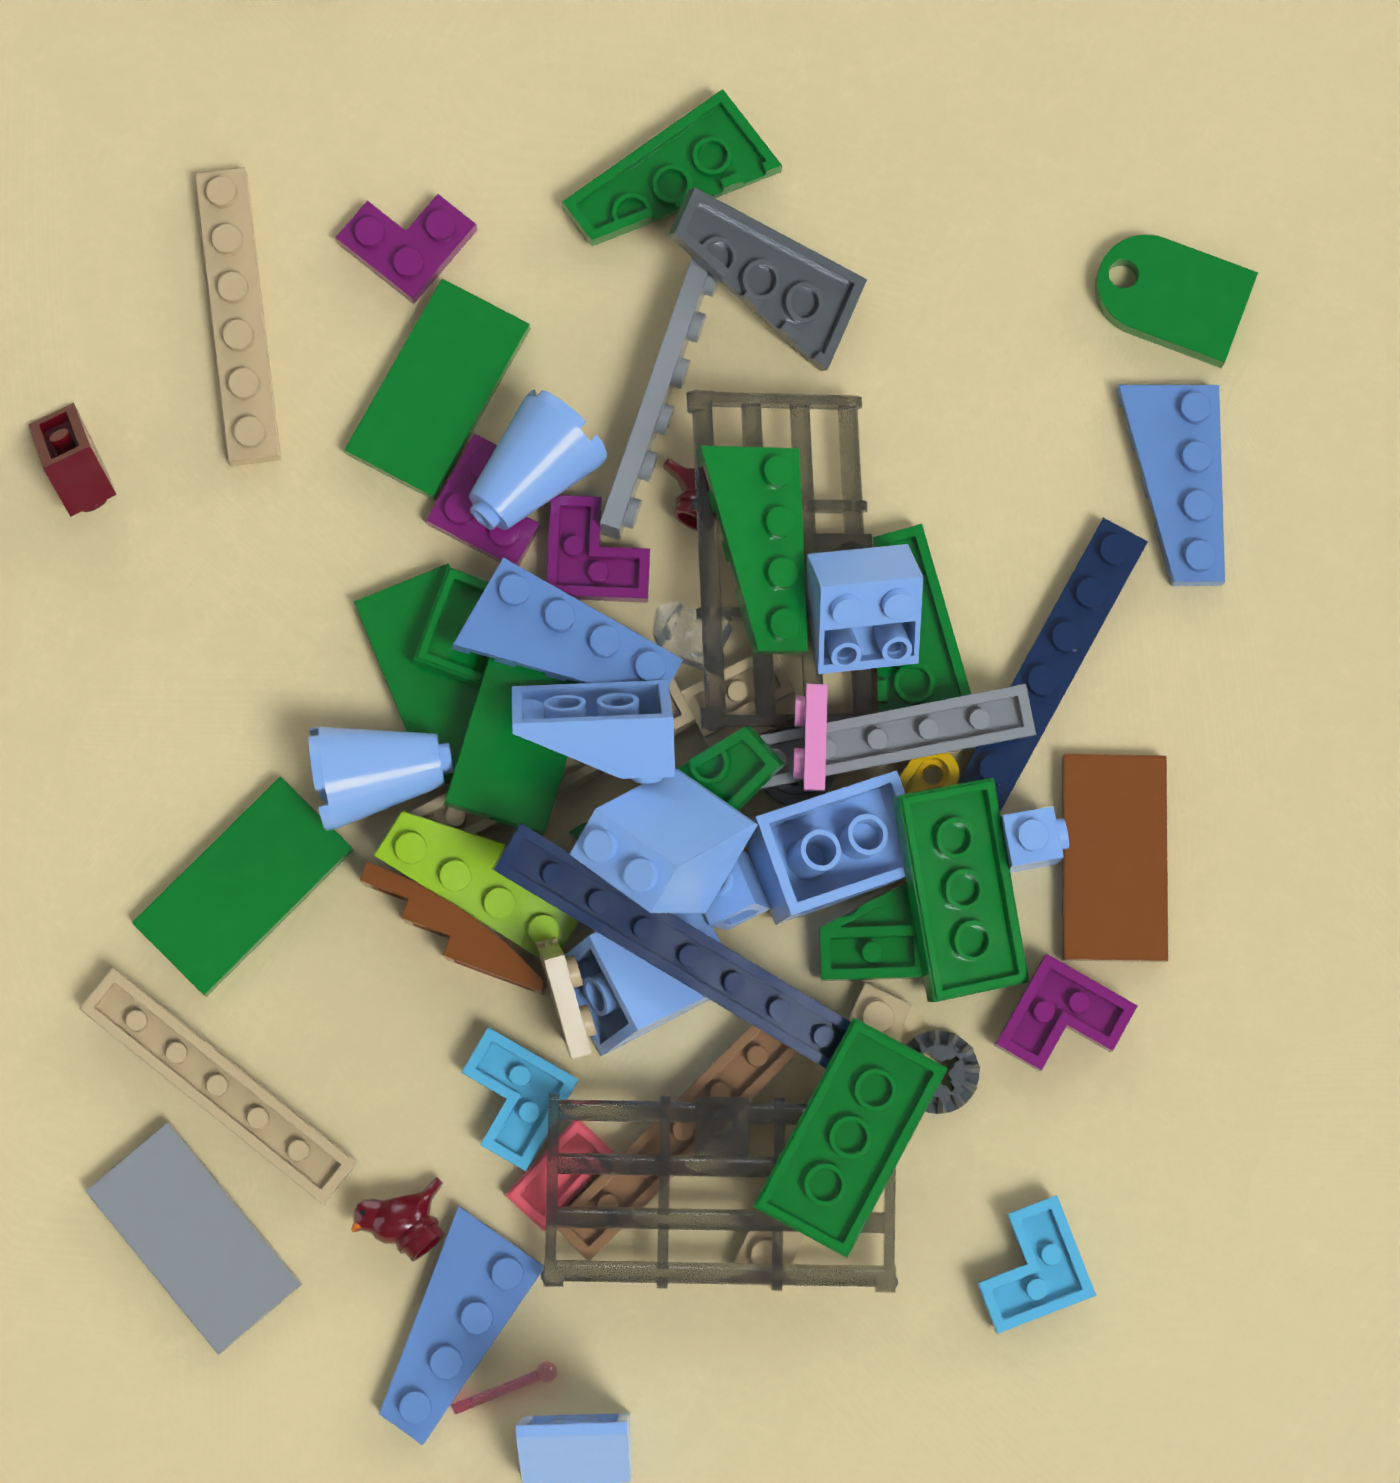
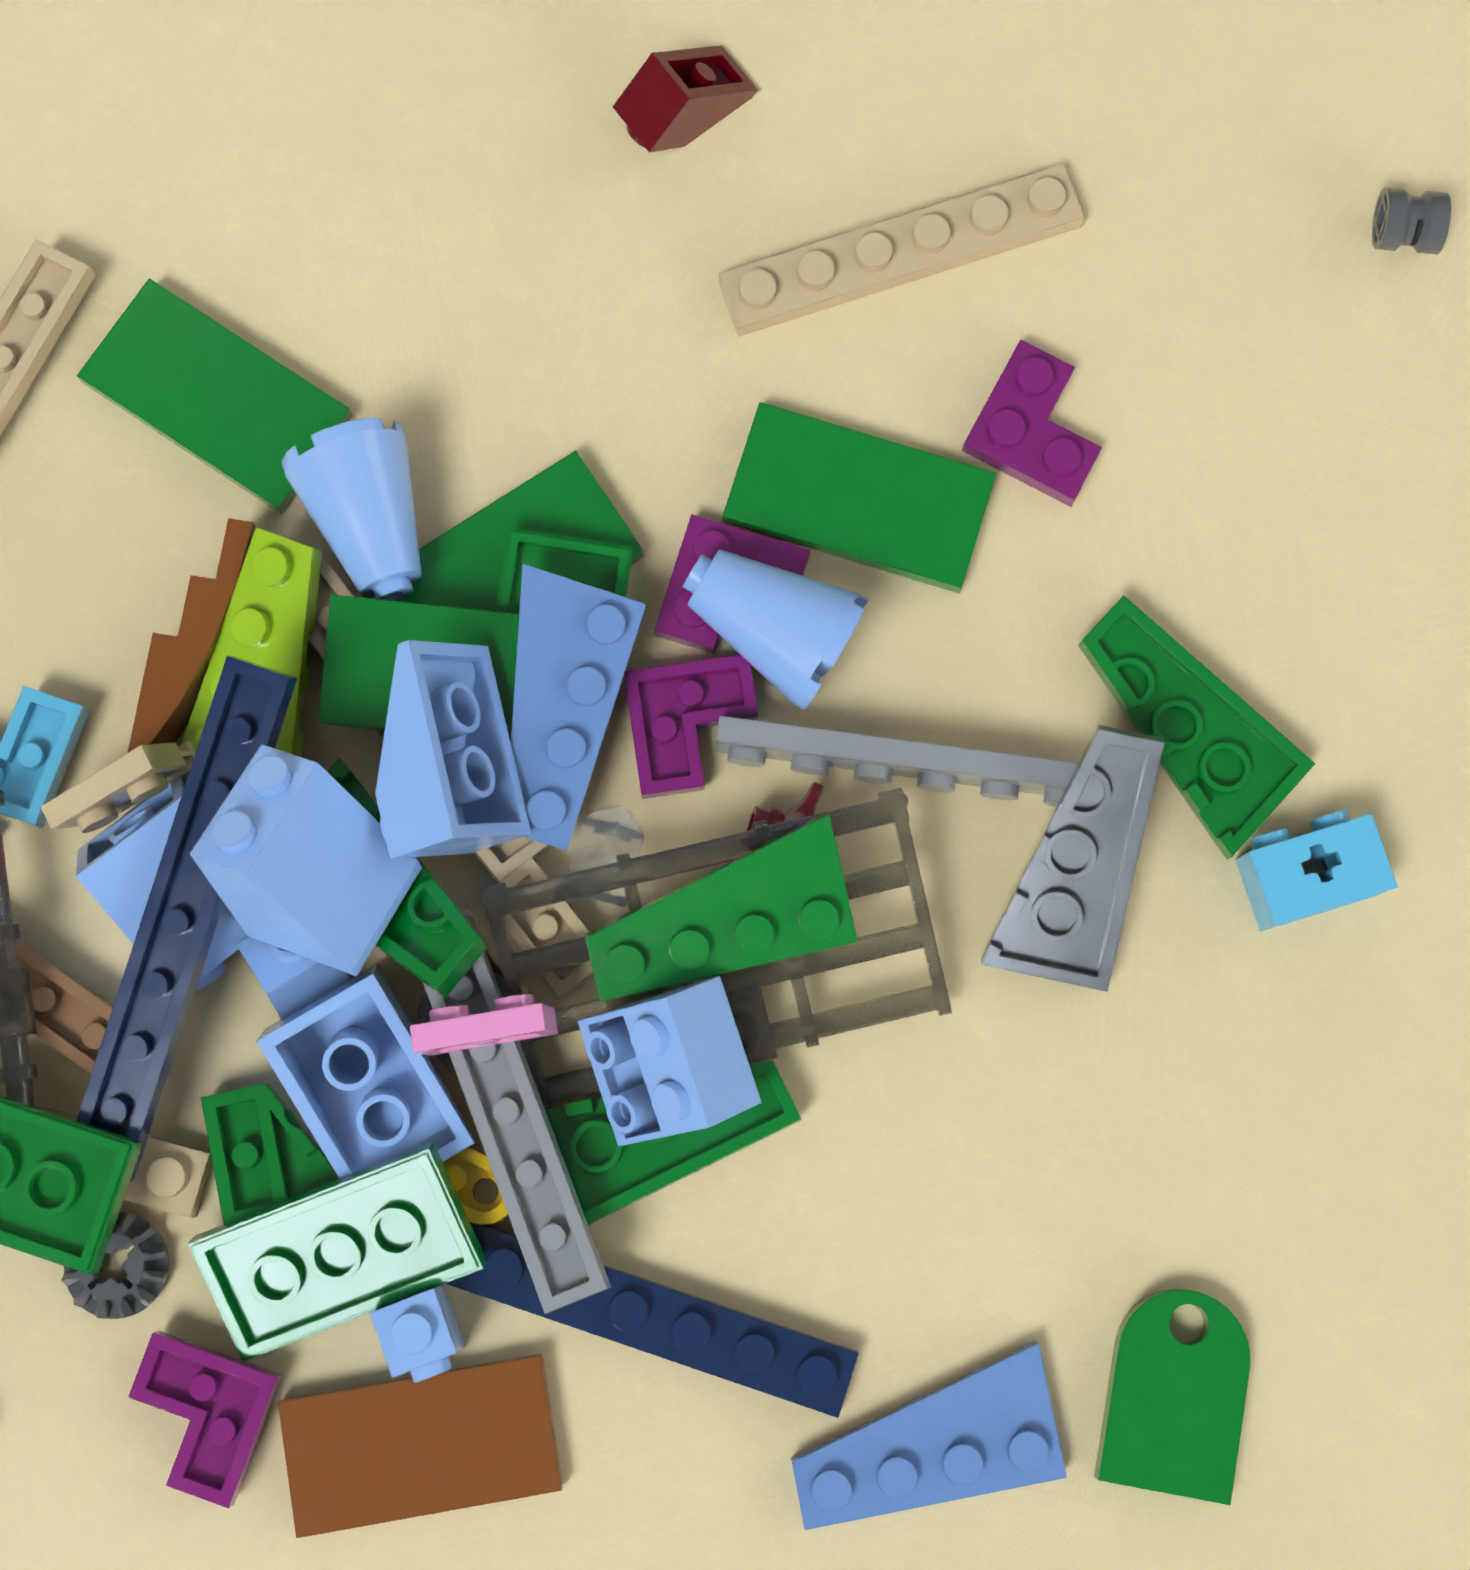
camera: 80 degrees right, 0 degrees up
(808, 80) = (1352, 863): none -> medium azure brick

